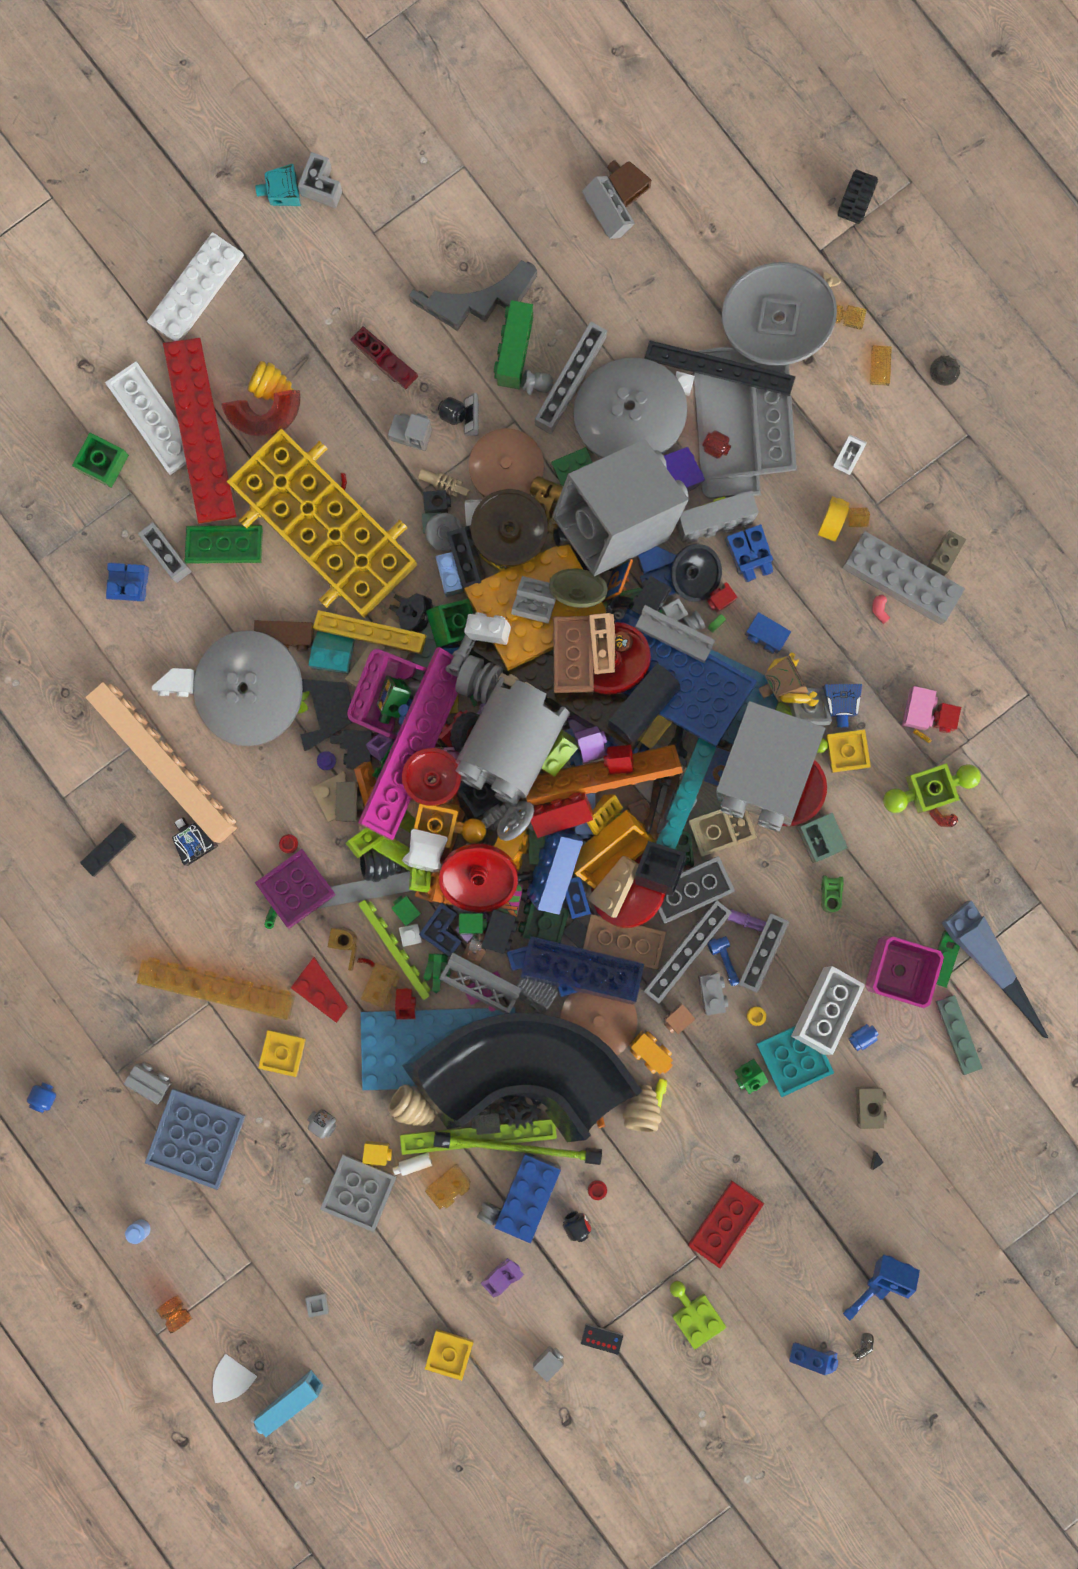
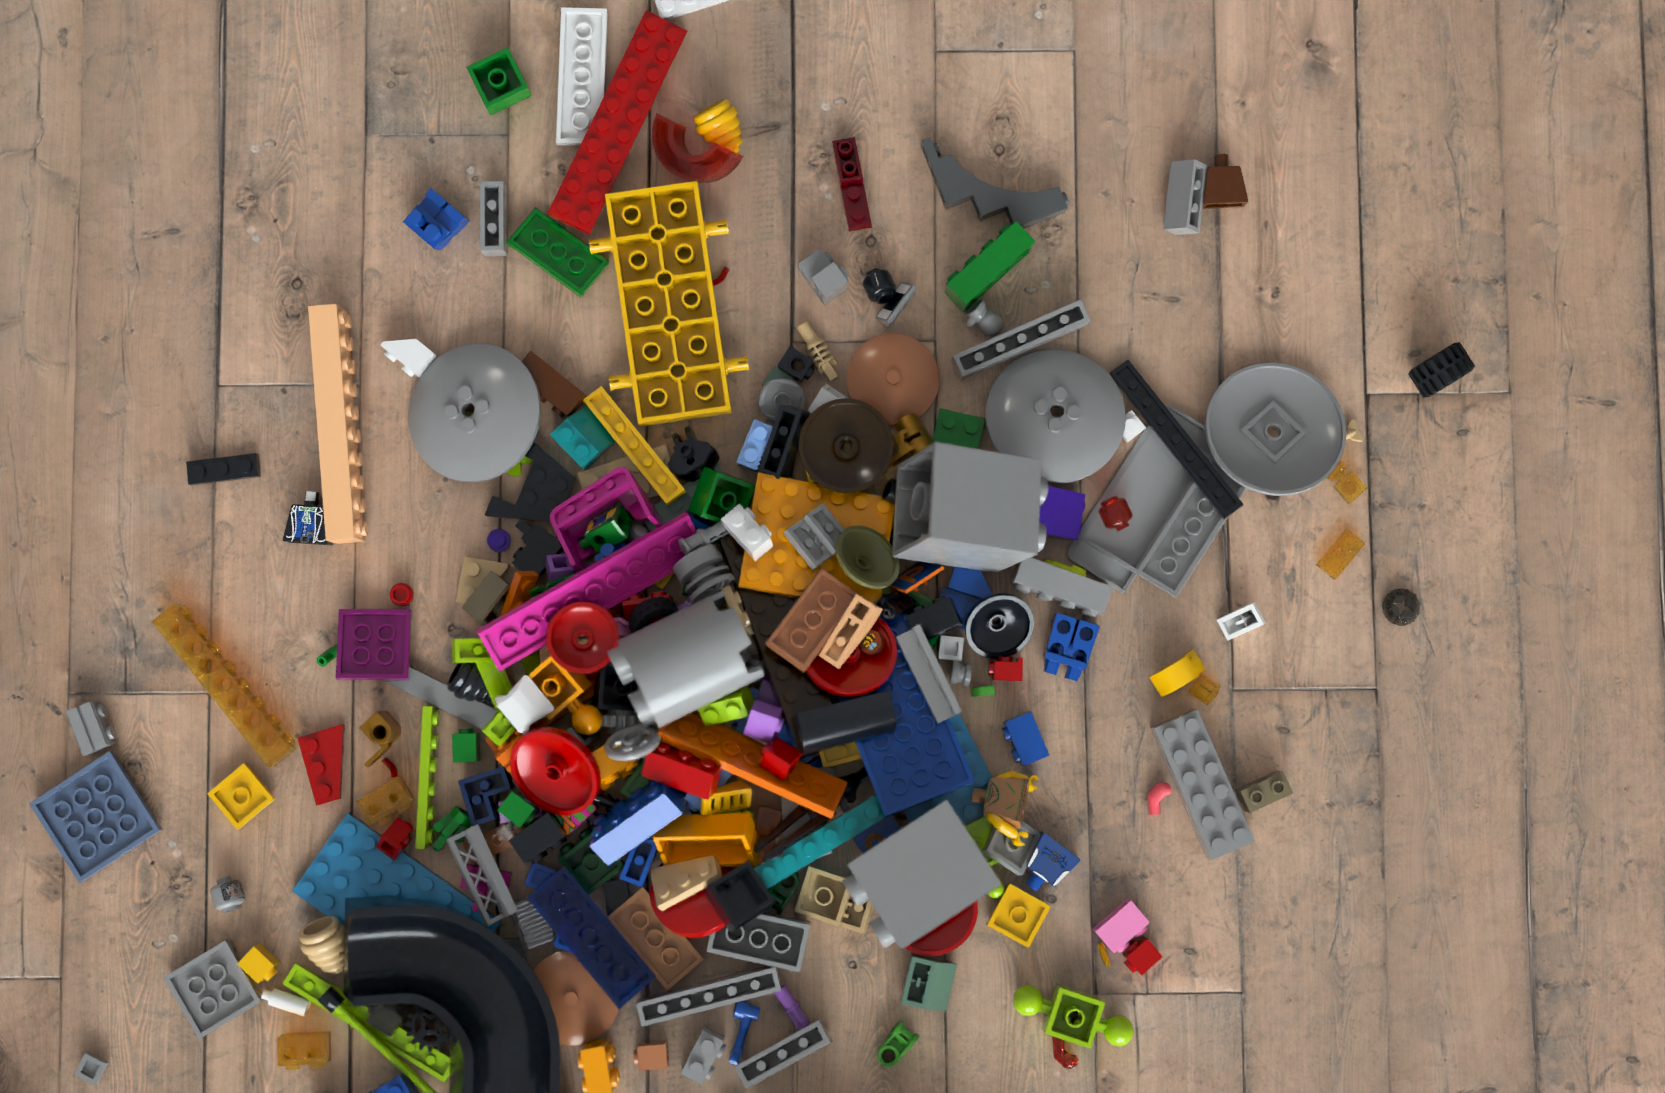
camera: 30 degrees right, 0 degrees up
(410, 935) = (452, 773): white plate -> none

